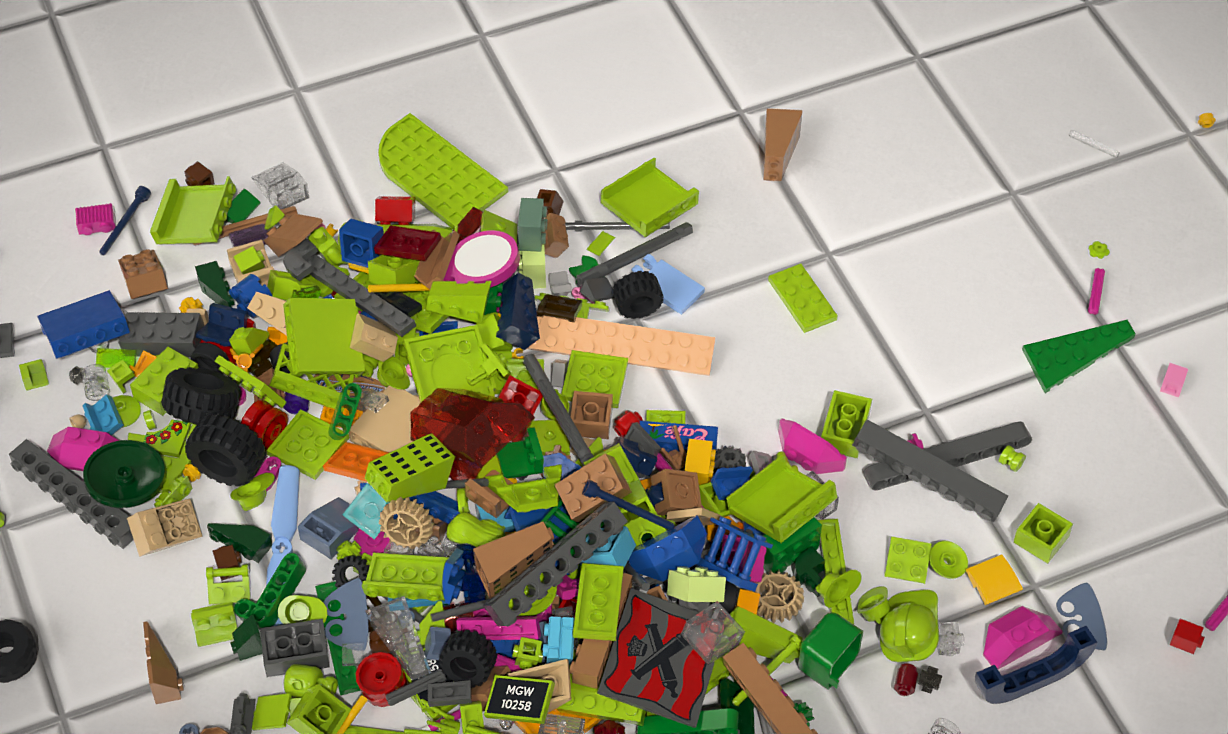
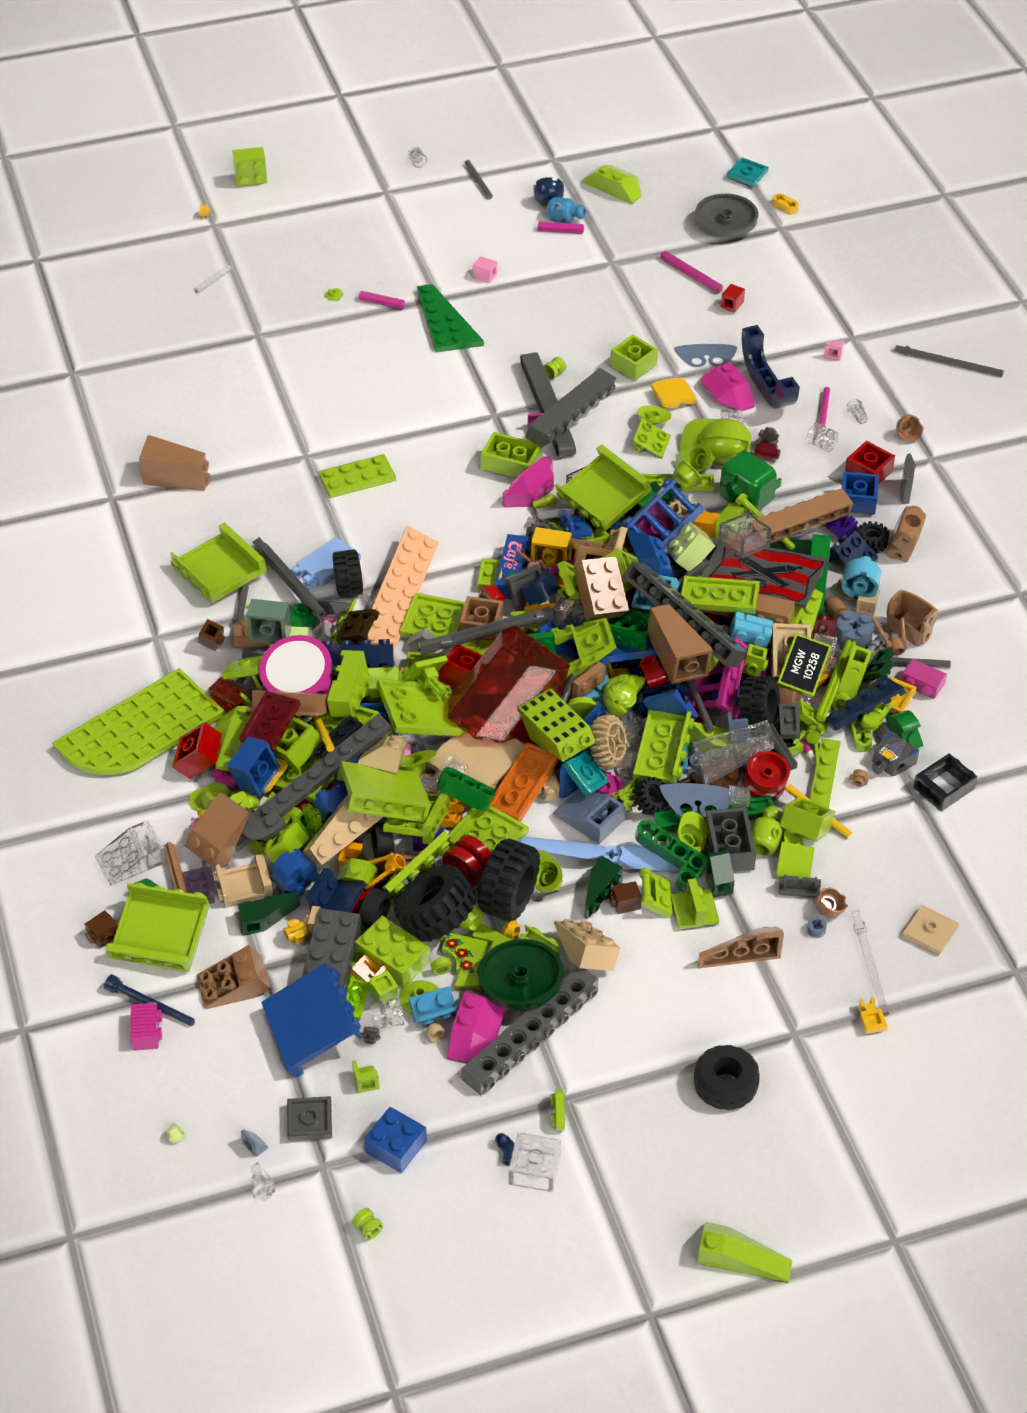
camera: 85 degrees left, 5 degrees down
(250, 260) = (244, 875): lime brick -> none
(273, 217) = (185, 855): lime slope -> none
(591, 489) = (618, 574): dark blue piece -> none

